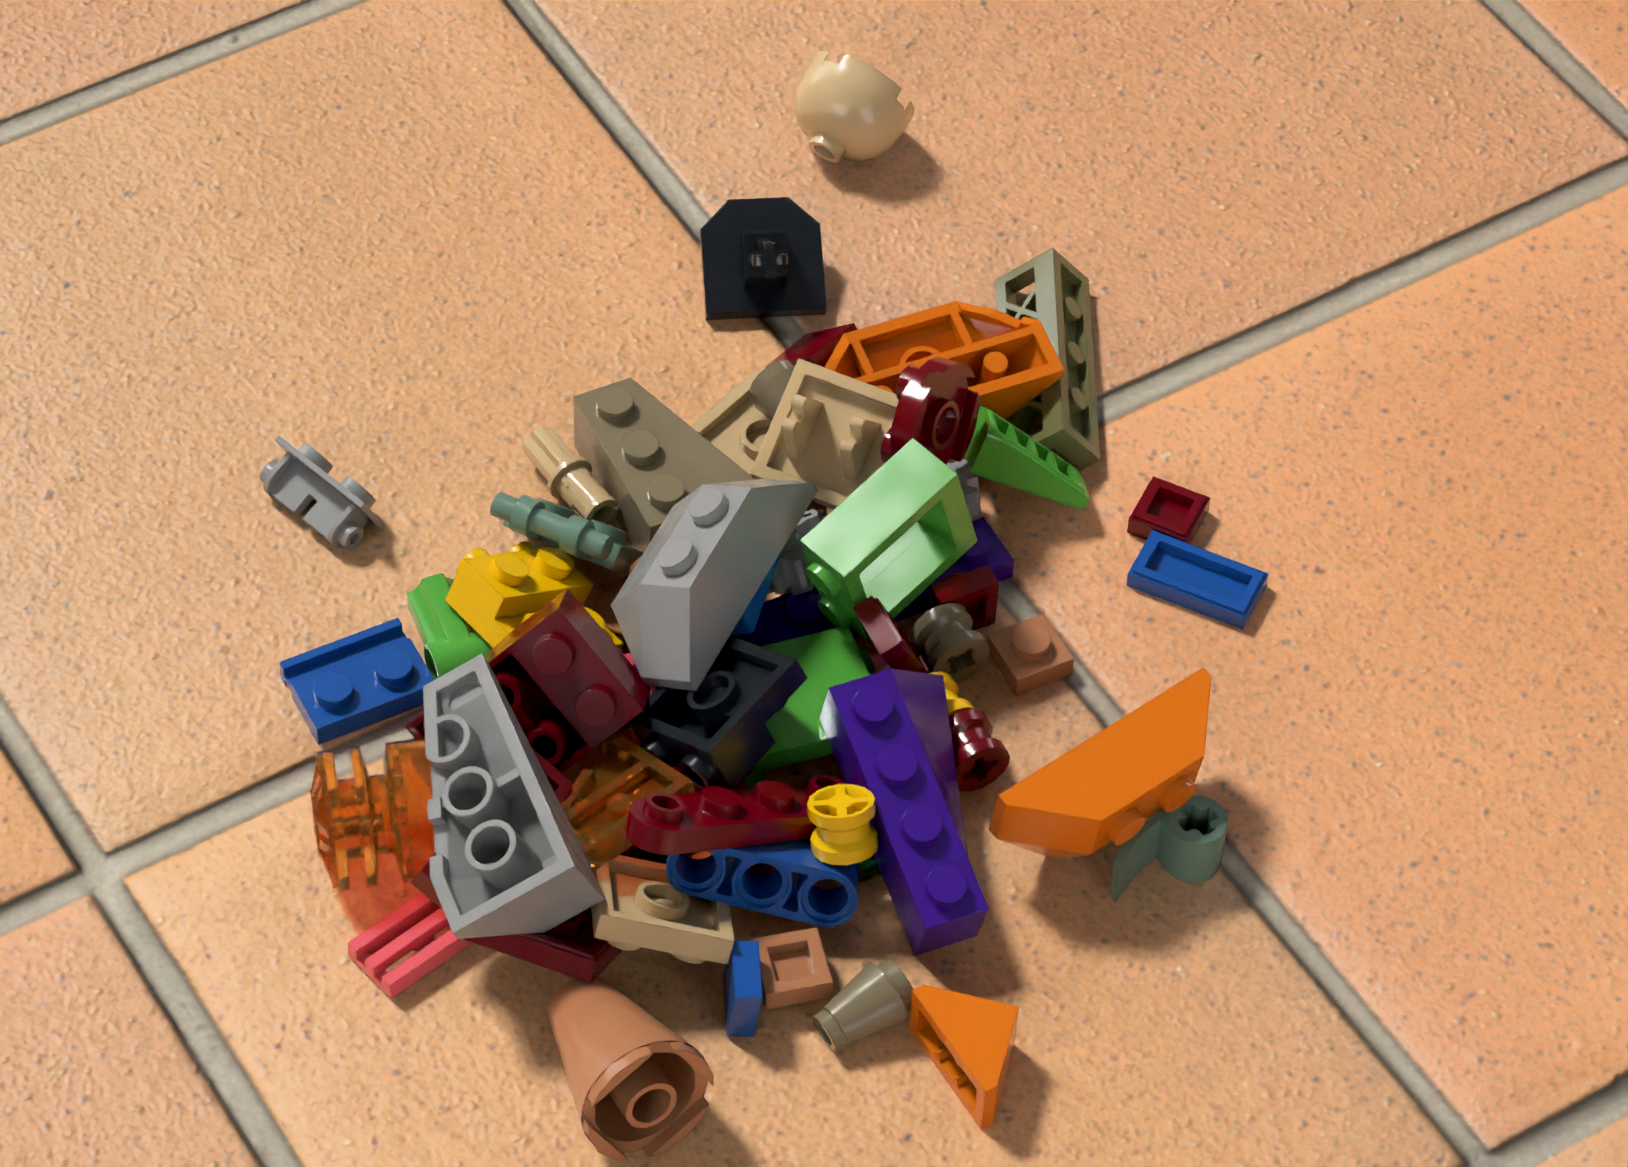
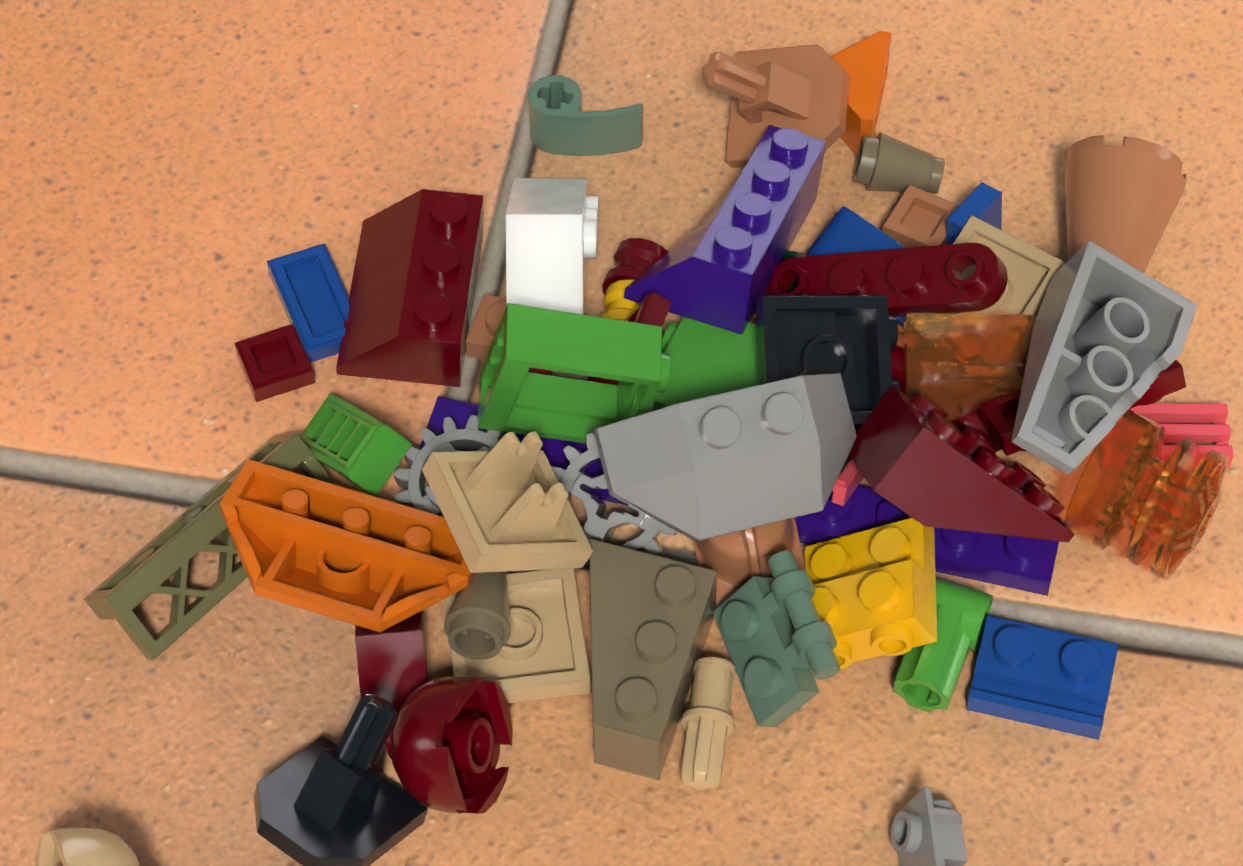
camera: 135 degrees left, 5 degrees up
(720, 329) = (451, 743): none -> dark red cylinder
(842, 824) = (811, 214): yellow wheel -> none
(934, 410) = (408, 434): dark red plate -> none
(1014, 956) = (781, 89): none -> nougat piece
(1038, 663) = (547, 242): none -> white wedge
(1112, 779) = (616, 133): orange wedge -> none
(1118, 616) = (414, 290): none -> dark red slope

